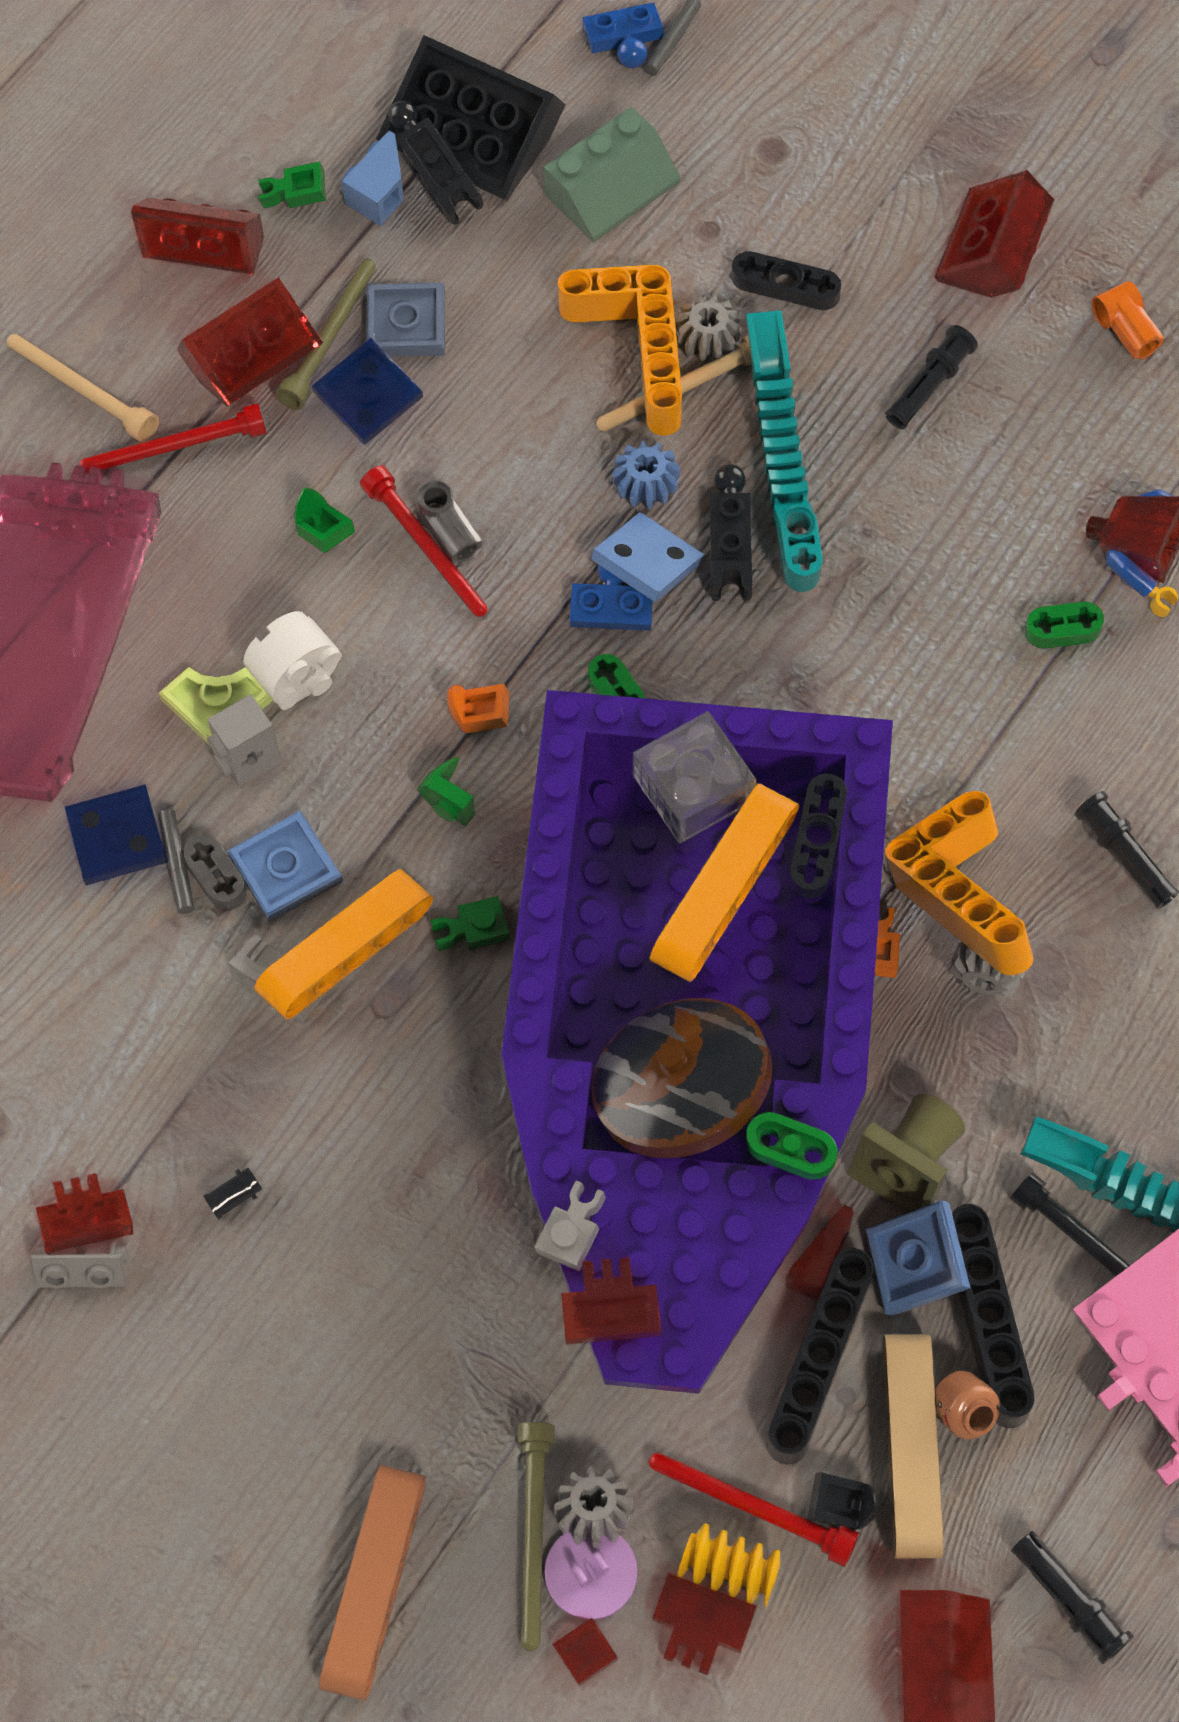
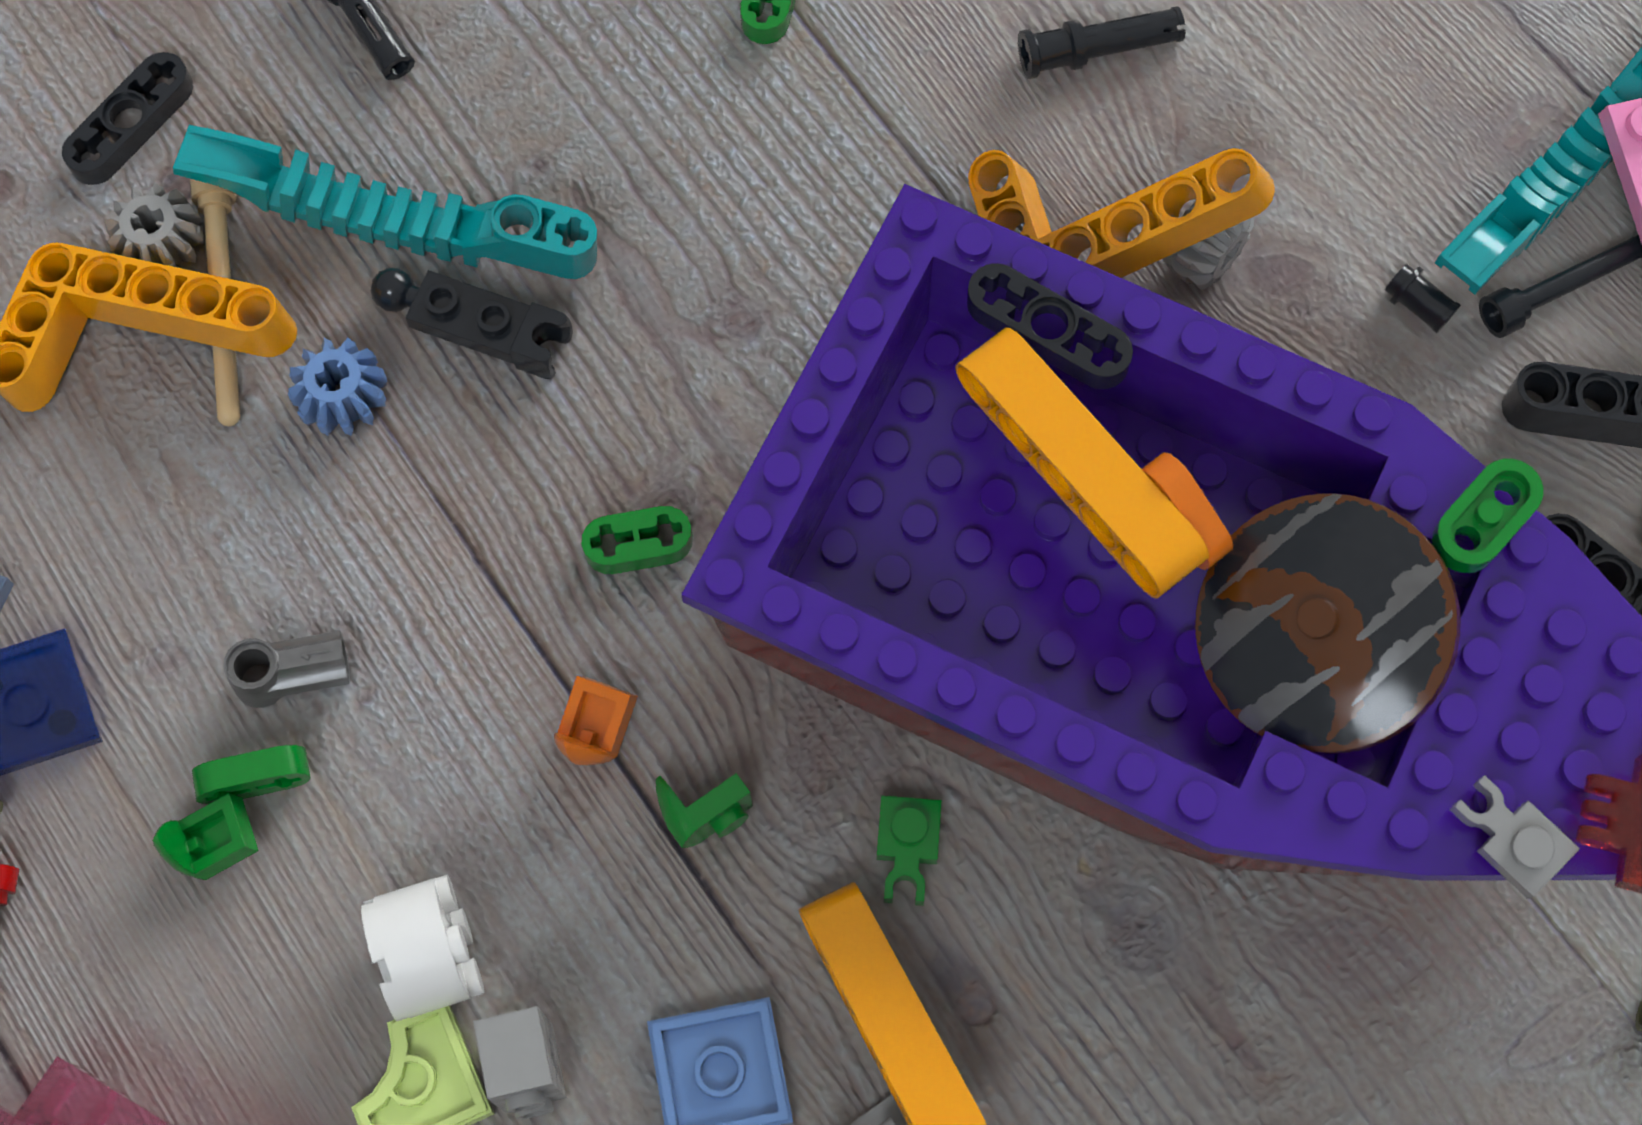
camera: 70 degrees left, 5 degrees up
(371, 530) = (251, 773): none -> green beam
(380, 485) = (186, 737): red piece -> none
(609, 605) = (505, 503): blue plate -> none
(647, 557) = (463, 429): medium blue tile -> none
(693, 776) = (915, 442): clear brick -> none
(718, 958) = (1189, 499): none -> orange beam
(904, 1164) = (1471, 421): olive plant -> none
(917, 1258) = (1575, 453): medium blue tile -> none
(1015, 1131) = (1421, 297): none -> black pin

